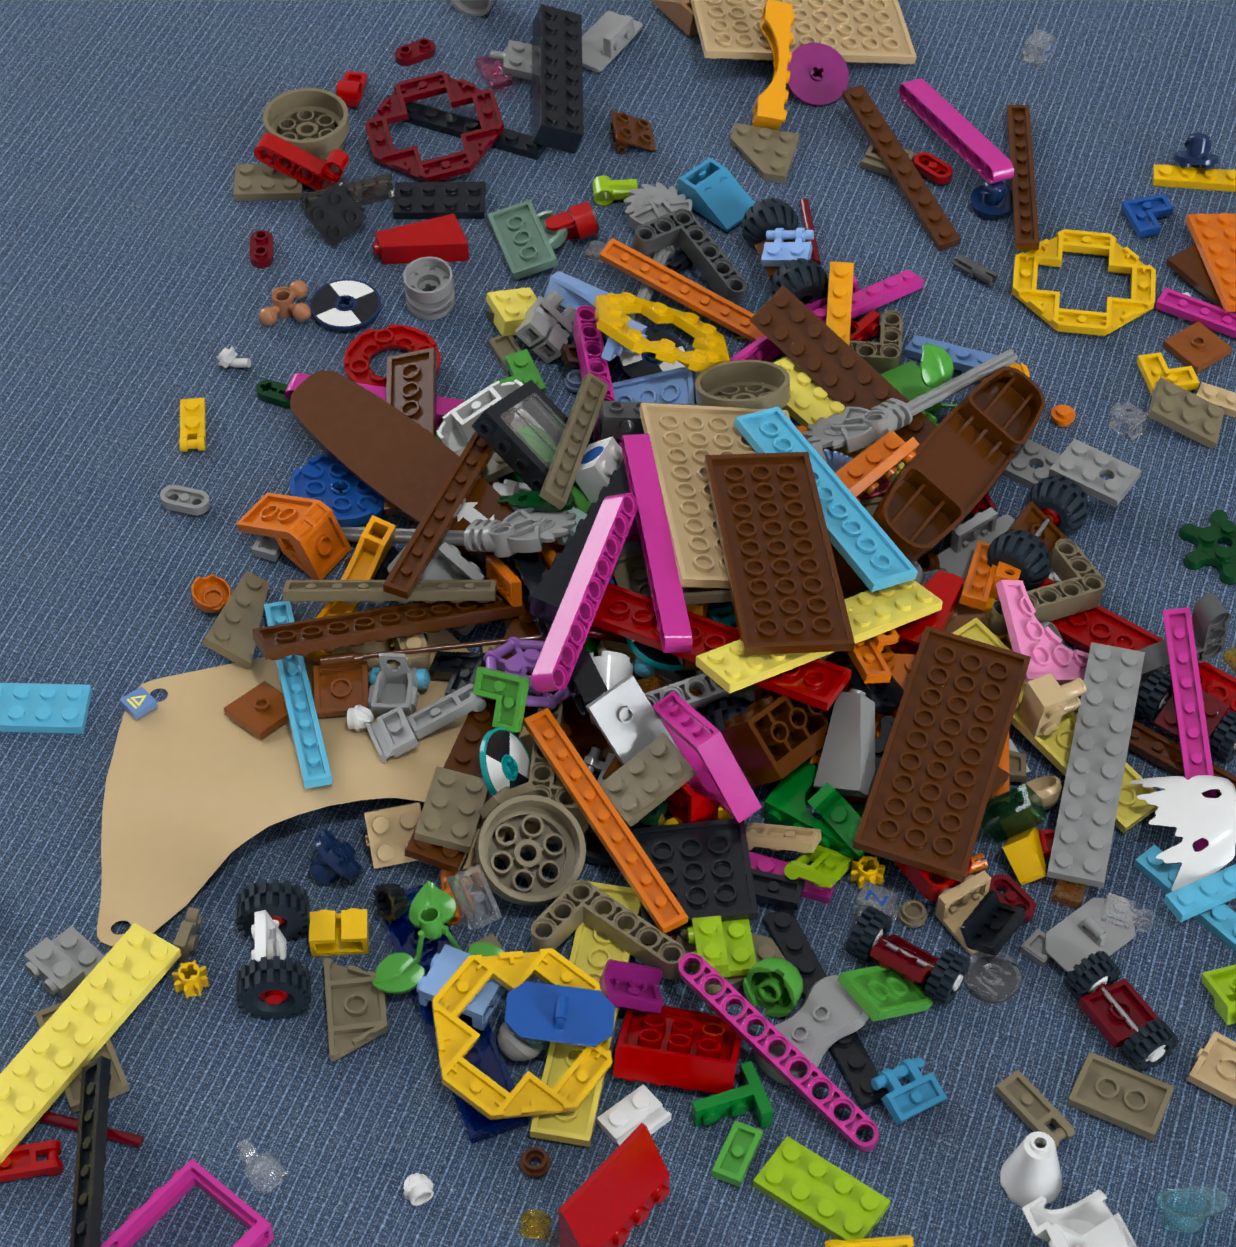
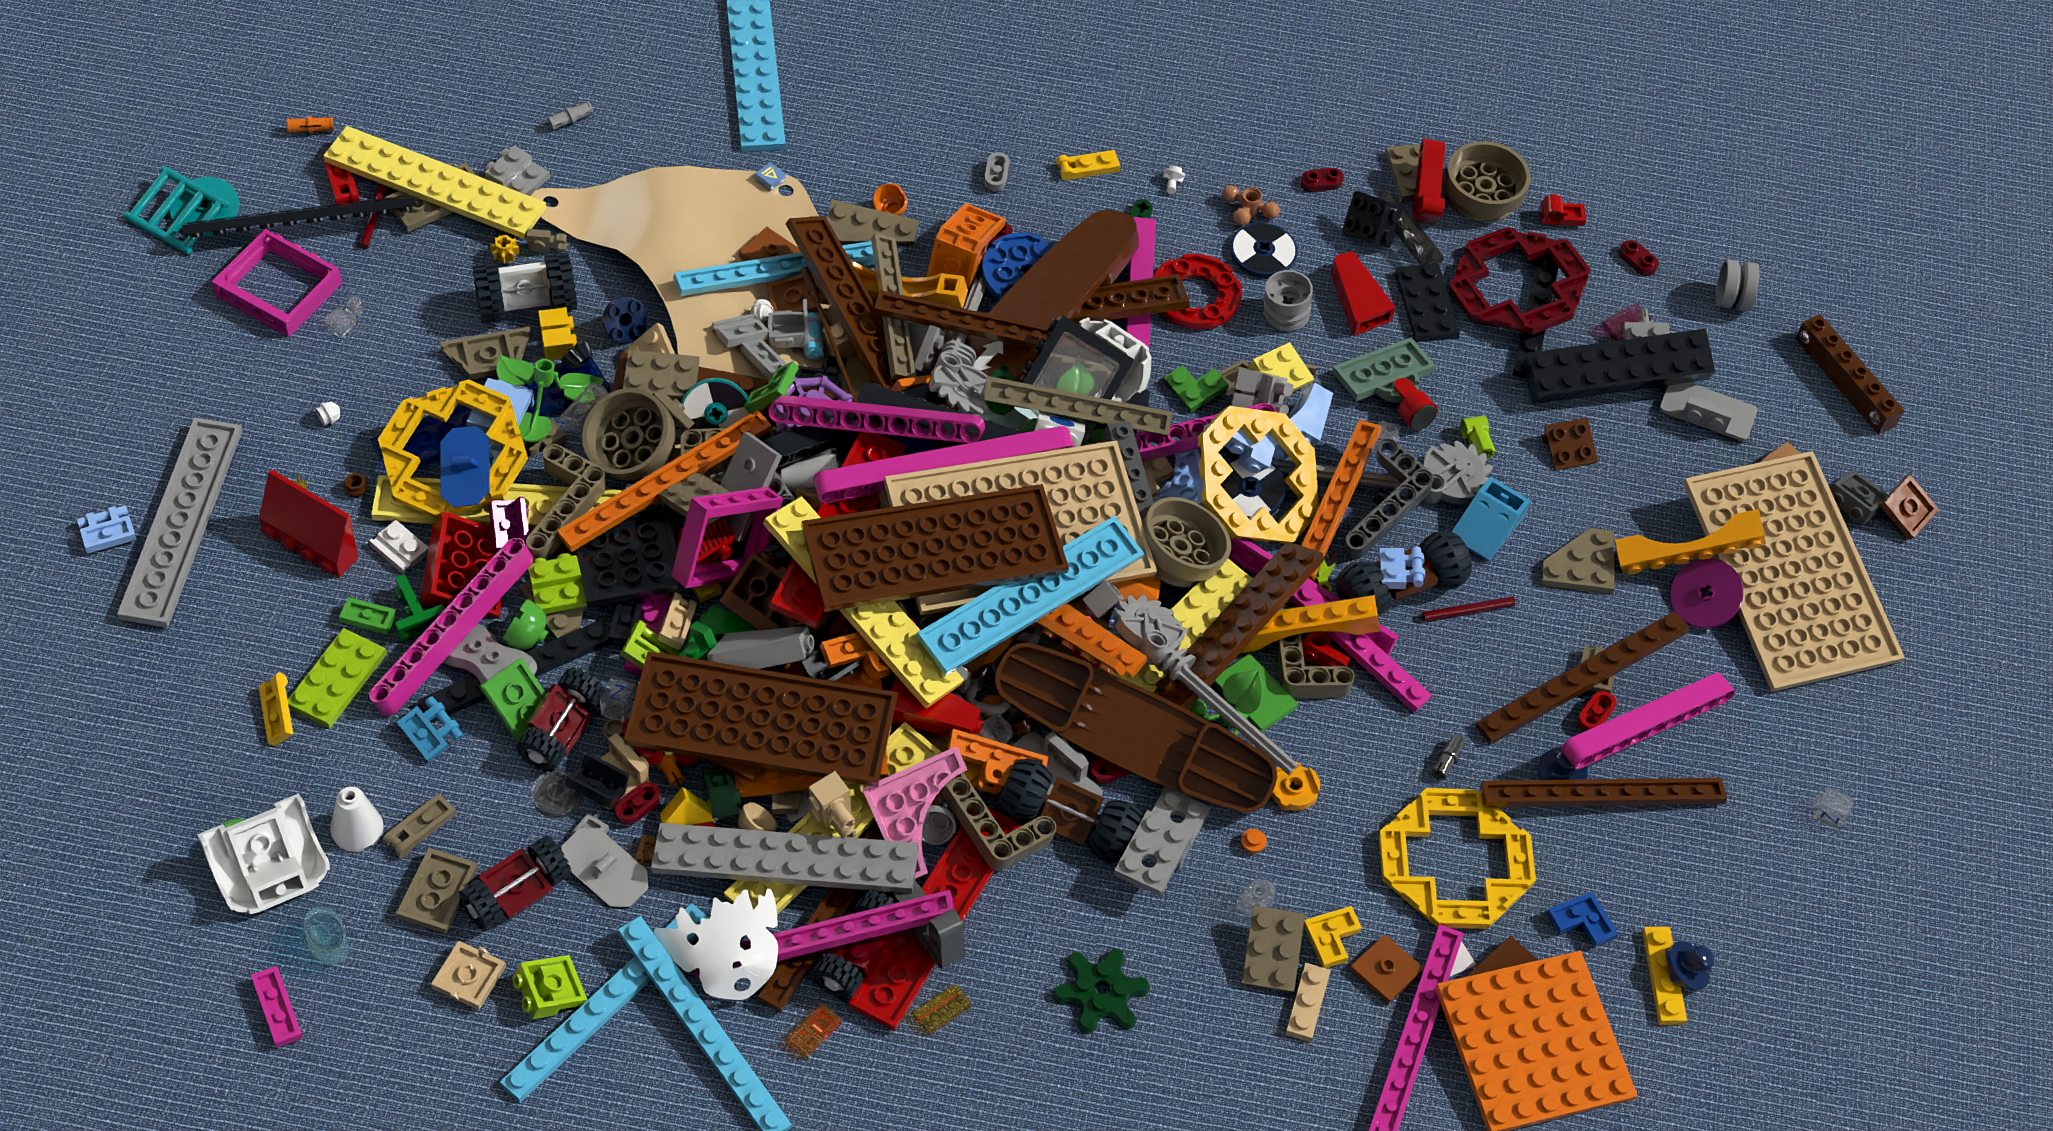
camera: 75 degrees right, 5 degrees up
(962, 357) = (1310, 735): medium blue plate -> none
(1122, 913) = (630, 891): clear plate -> none

